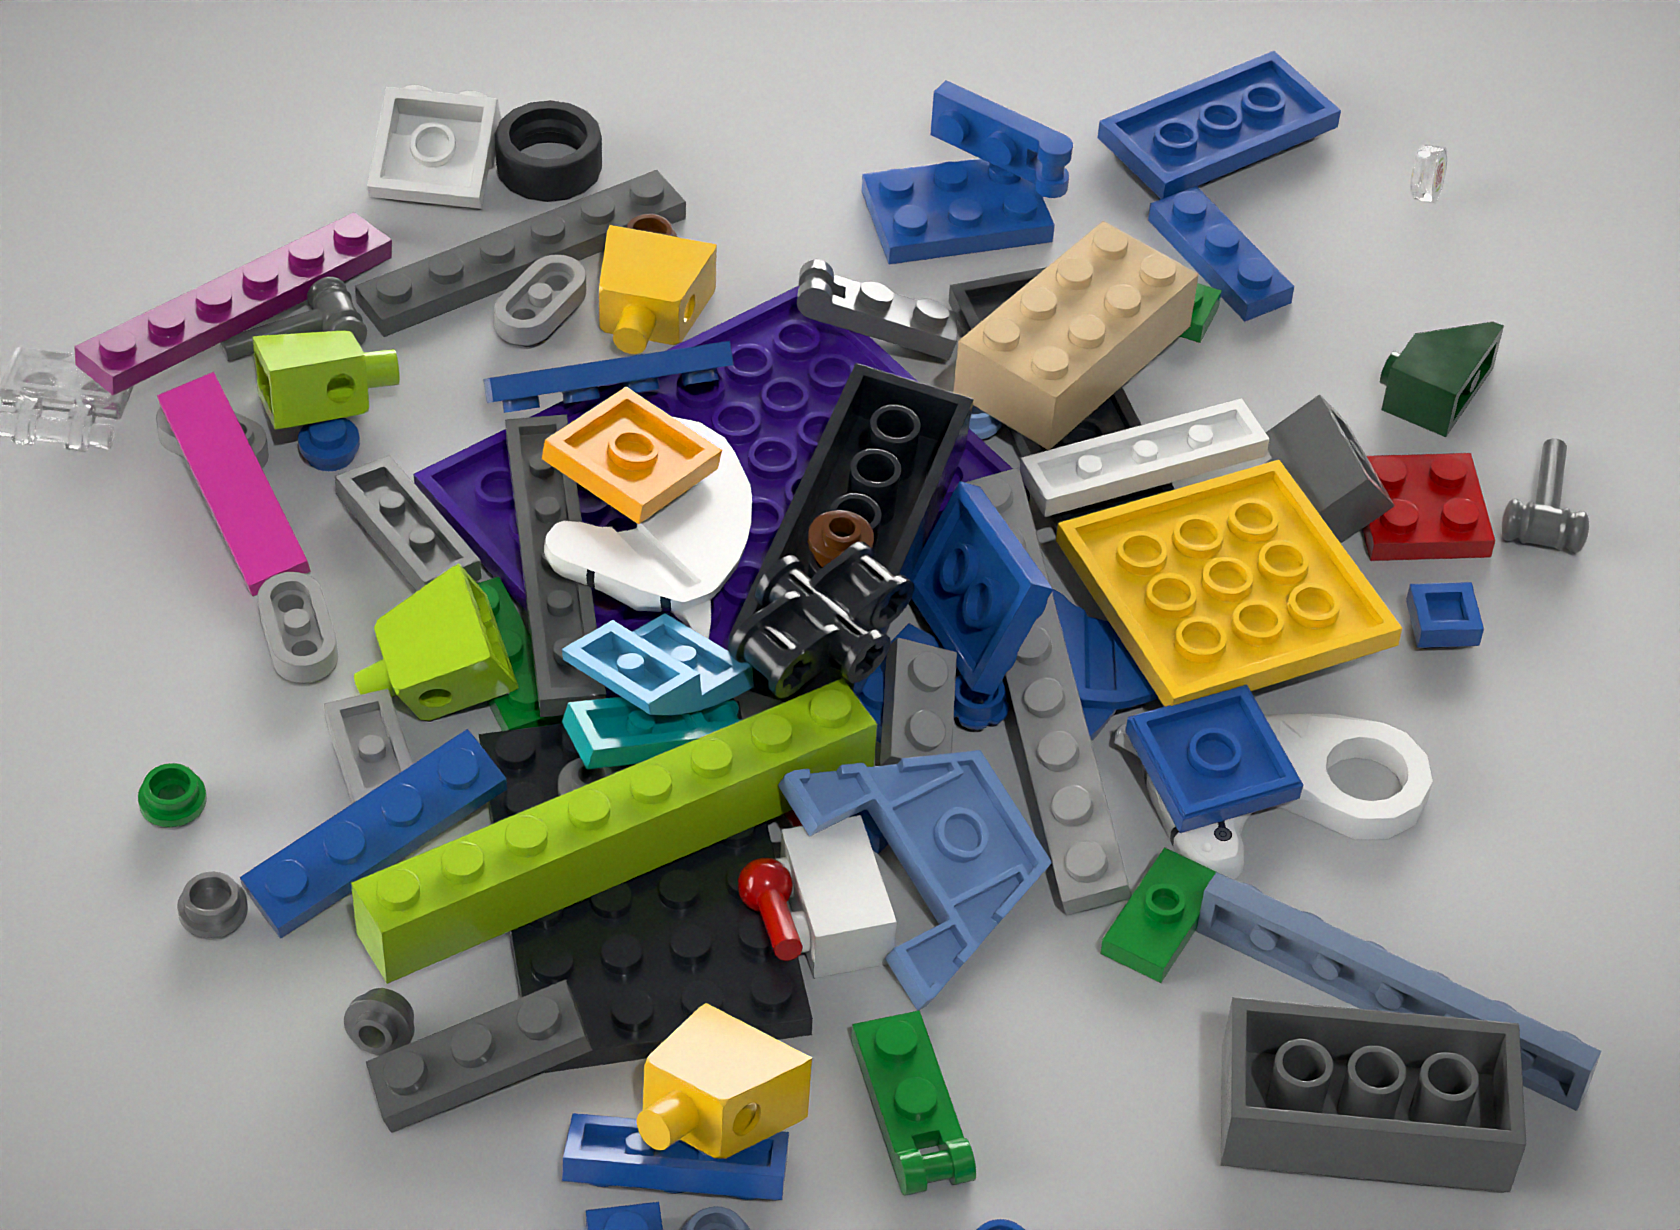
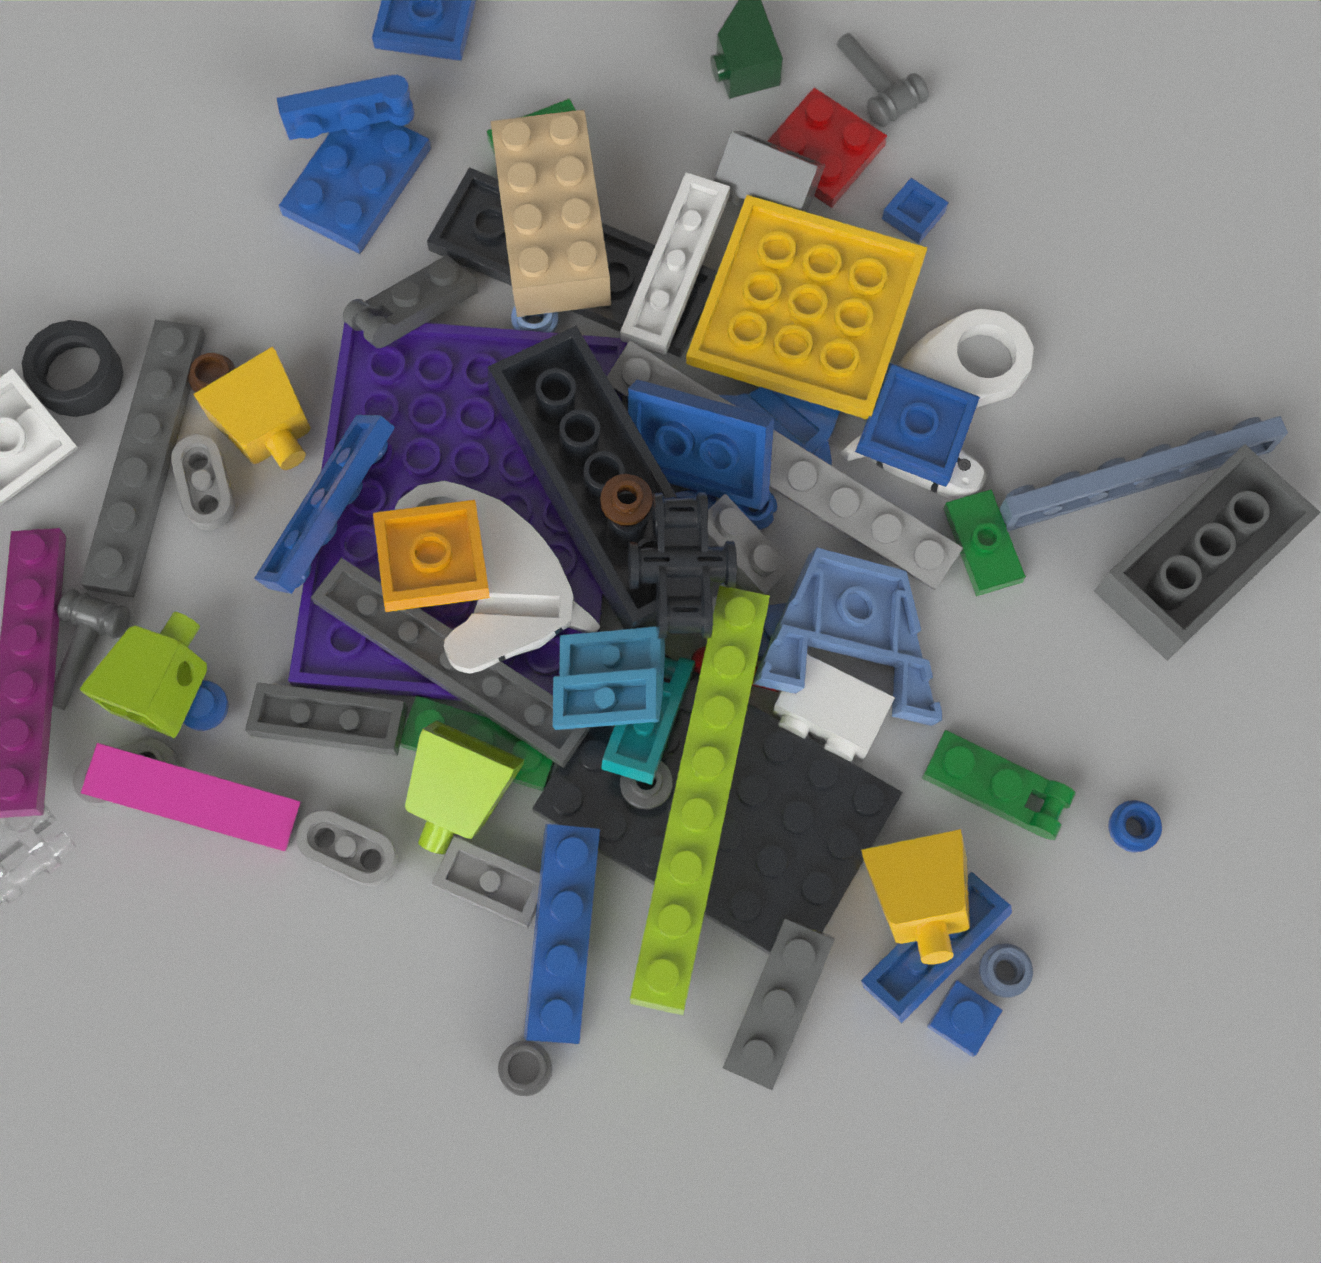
camera: 45 degrees left, 25 degrees up
(172, 795) = (404, 1016): green plate -> none
(380, 1021) = (703, 1038): flat silver plate -> none
(766, 888) = (800, 744): red bar -> none
(1221, 253) = (533, 69): blue plate -> none

